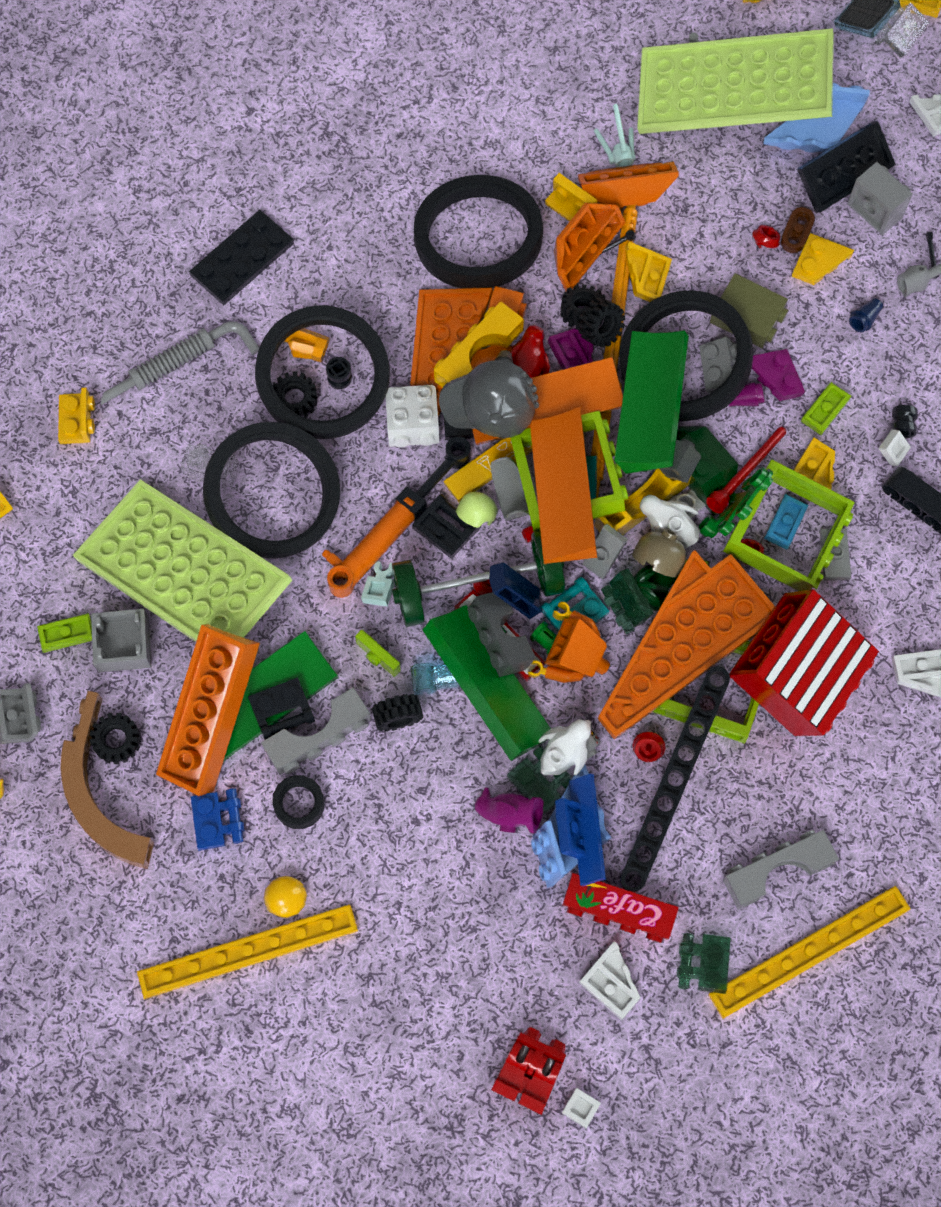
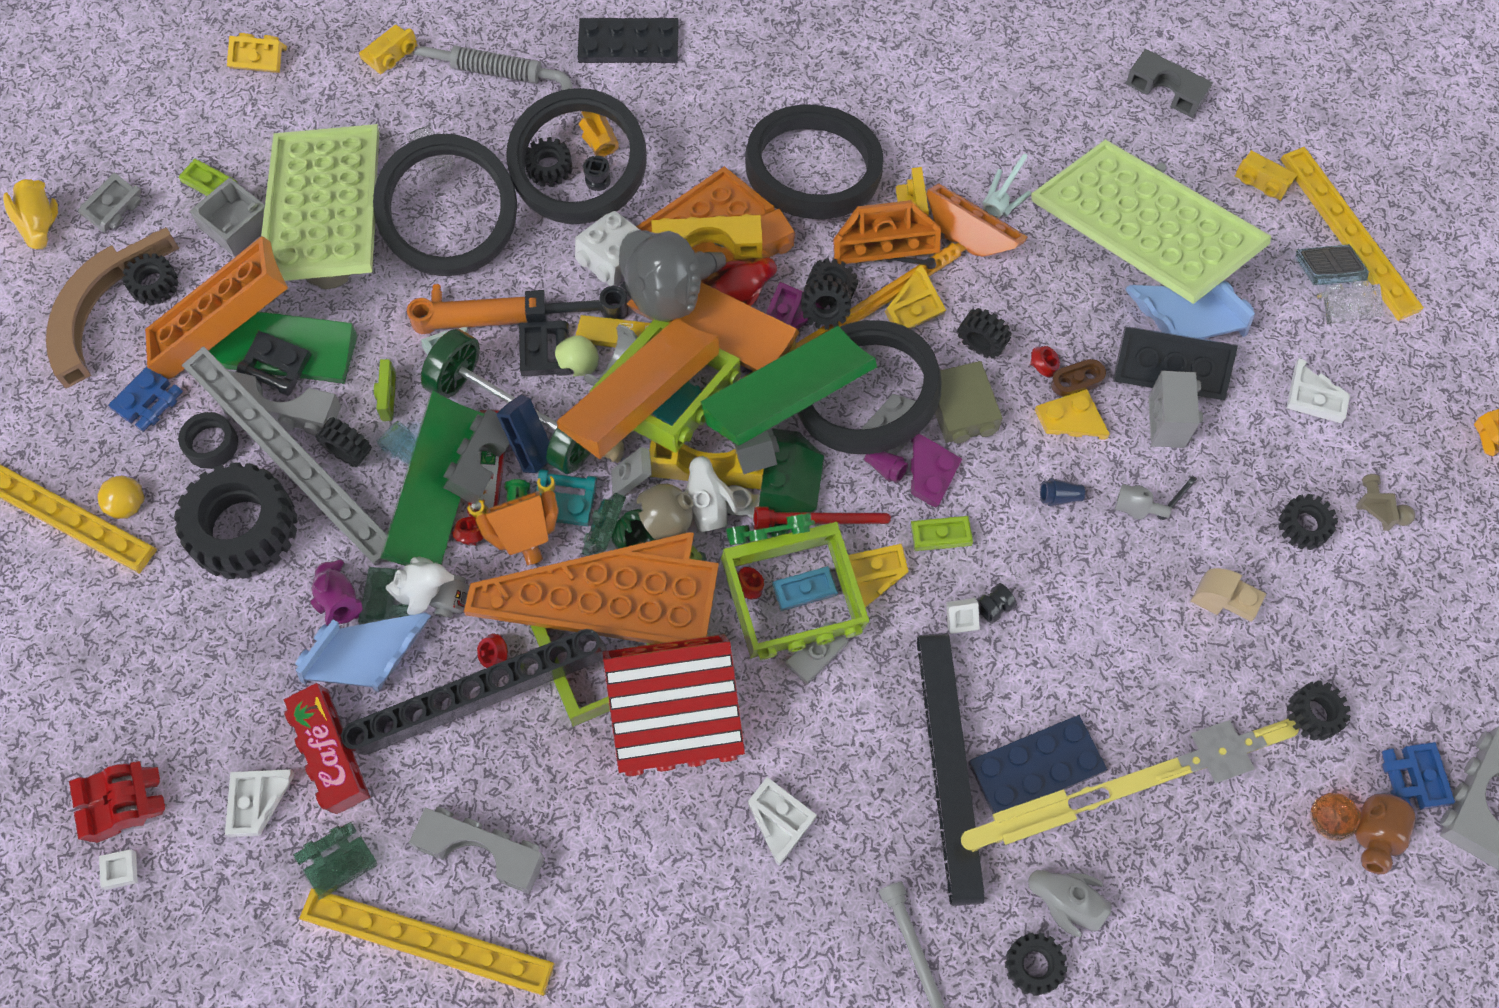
camera: 45 degrees right, 5 degrees down
(370, 755) = (287, 454): none -> light grey plate
(384, 795) = (215, 494): none -> black tyre
(542, 689) = (467, 531): none -> red hat
(580, 829) = (354, 652): blue bracket -> none
(715, 252) = (984, 333): none -> black tyre

